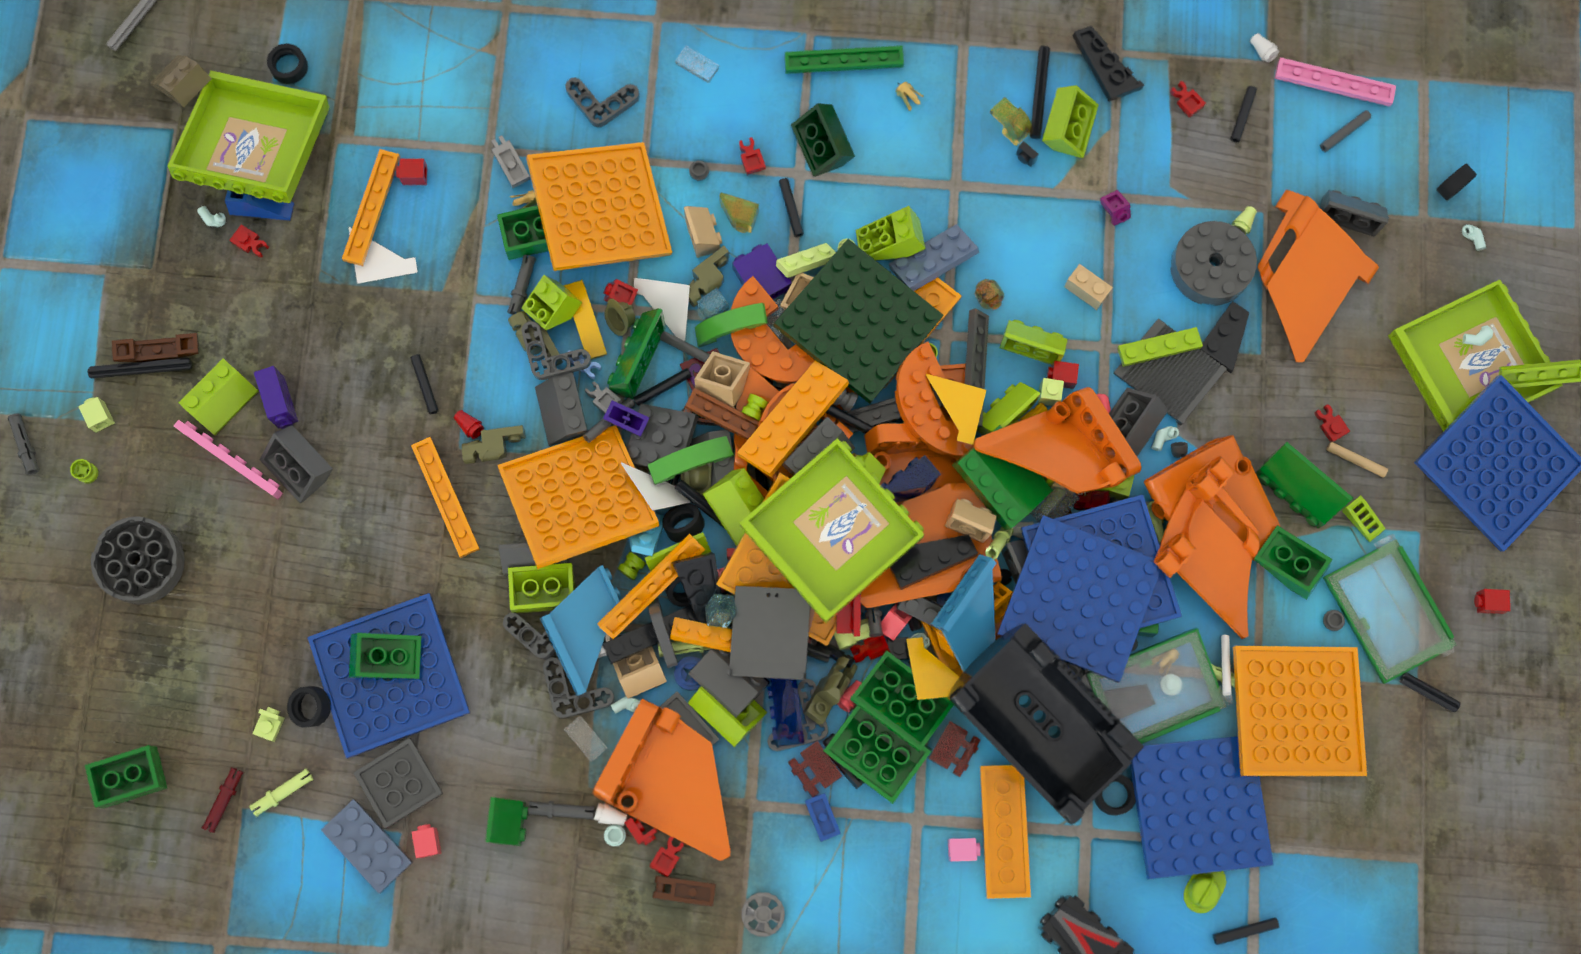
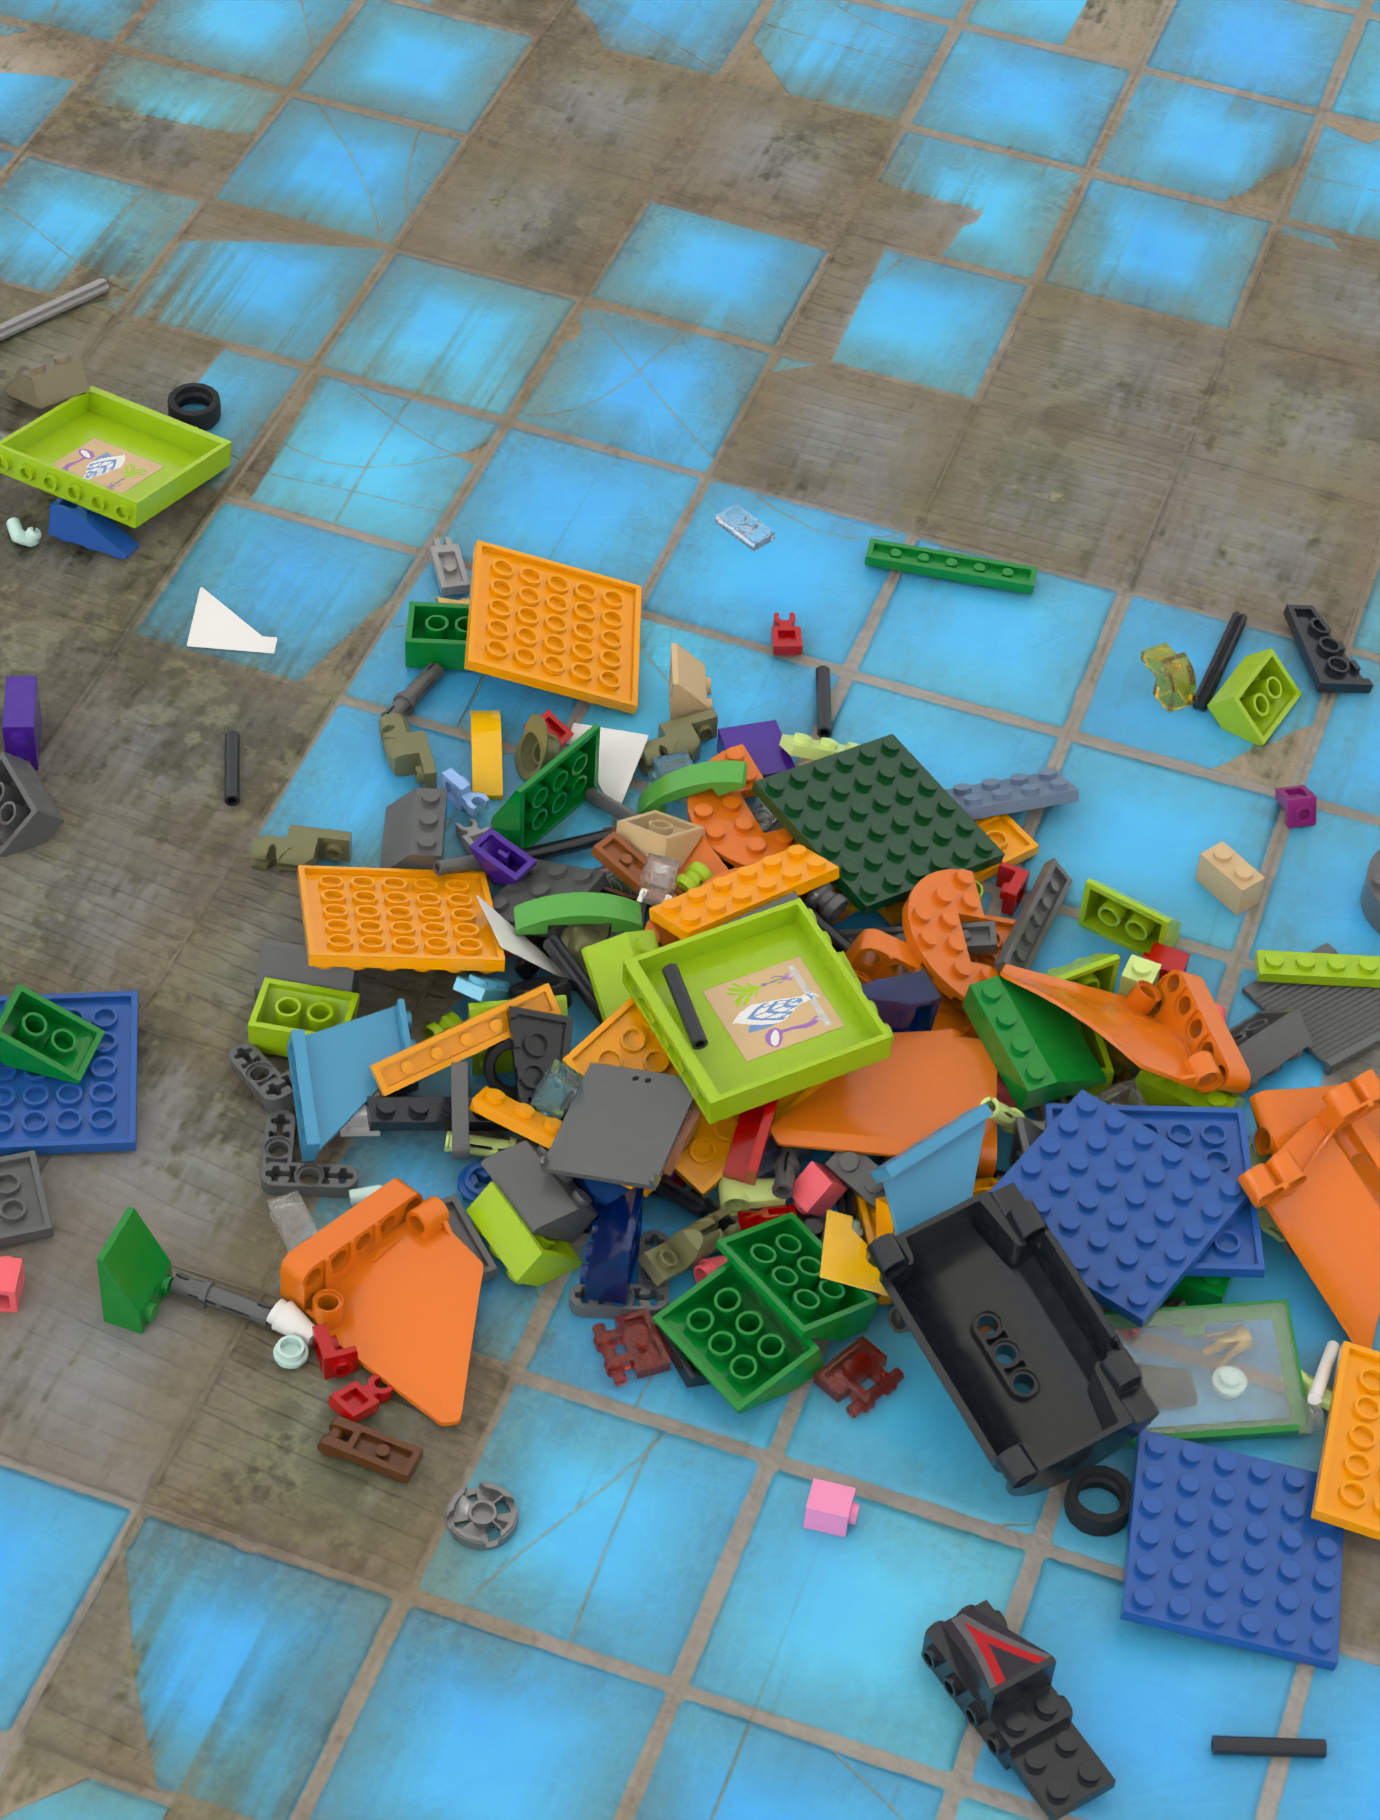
camera: 15 degrees right, 30 degrees down
(247, 240) = (59, 566): red plate -> none
(371, 207) = (240, 570): light orange plate -> none
(412, 171) = (313, 545): red brick -> none
(445, 497) = (208, 894): light orange plate -> none
(470, 426) = (274, 820): red cone -> none
(550, 362) = (418, 771): dark grey beam -> none
(551, 303) = (447, 711): lime slope -> none
(598, 108) = (595, 548): dark grey beam -> none
(639, 672) = (408, 1157): tan slope -> none
(699, 170) = (707, 633): dark grey plate -> none
(734, 421) = (657, 879): none -> clear brick
(739, 212) = (748, 686): clear yellow slope -> none
(789, 550) = (685, 1006): none -> black piece
(822, 139) = (893, 638): dark green slope -> none
(822, 817) = (621, 1410): blue plate -> none
(892, 236) = (962, 755): lime slope -> none
(906, 89) = (1026, 616): pearl gold piece -> none
(932, 558) = (890, 1106): black wing -> none
(955, 335) = (1013, 886): none -> red bracket
(962, 404) = (996, 940): yellow sticker -> none
(971, 520) = (967, 1070): tan slope -> none
(989, 294) = (1080, 853): clear orange head -> none
(1005, 832) = (905, 1505): light orange plate -> none
(1026, 154) = (1181, 717): black plate -> none
(1164, 435) = (1301, 1077): light aqua arm -> none
(1204, 891) = (1213, 1673): lime piece -> none

